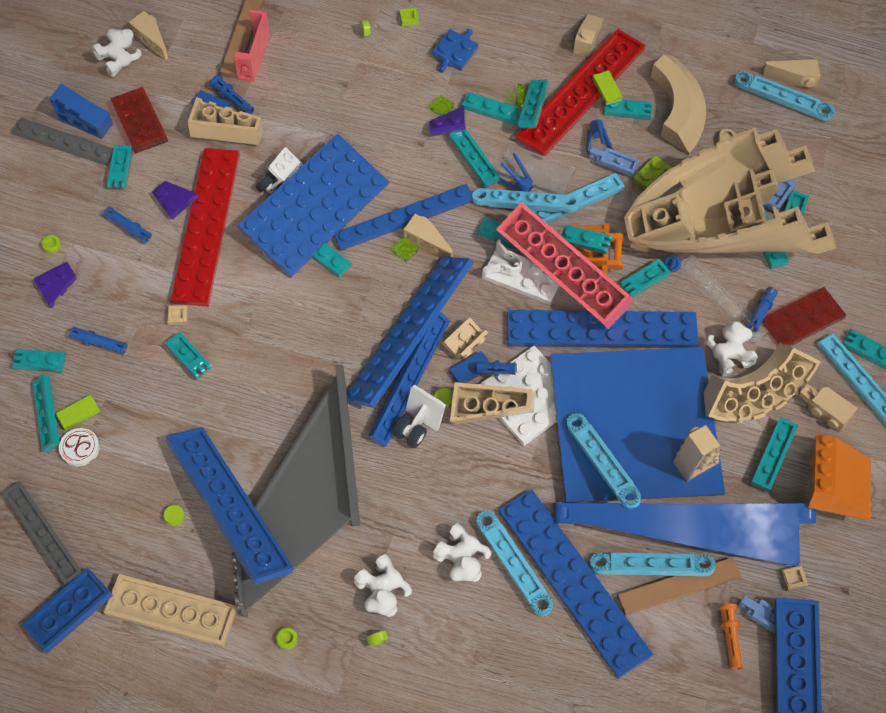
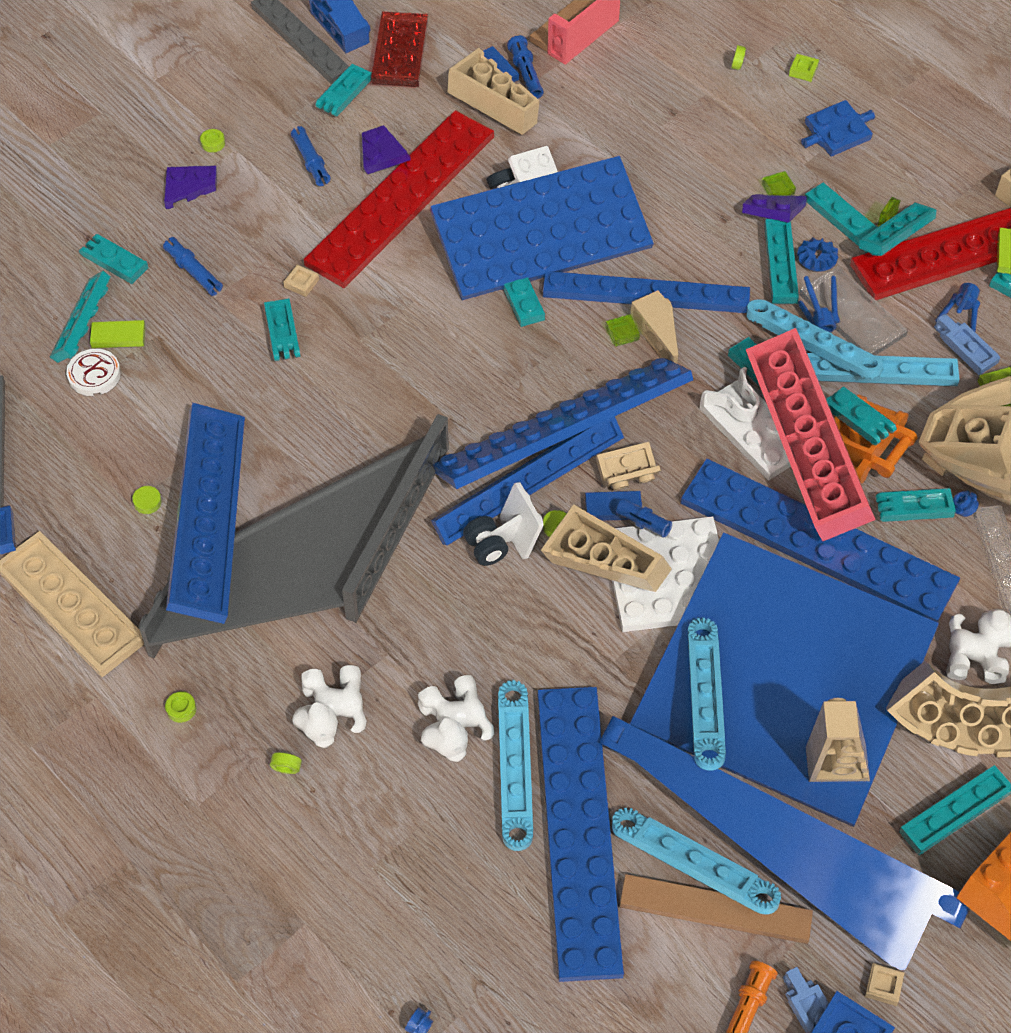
camera: 30 degrees right, 5 degrees down
(487, 145) = (826, 260): none -> blue gear

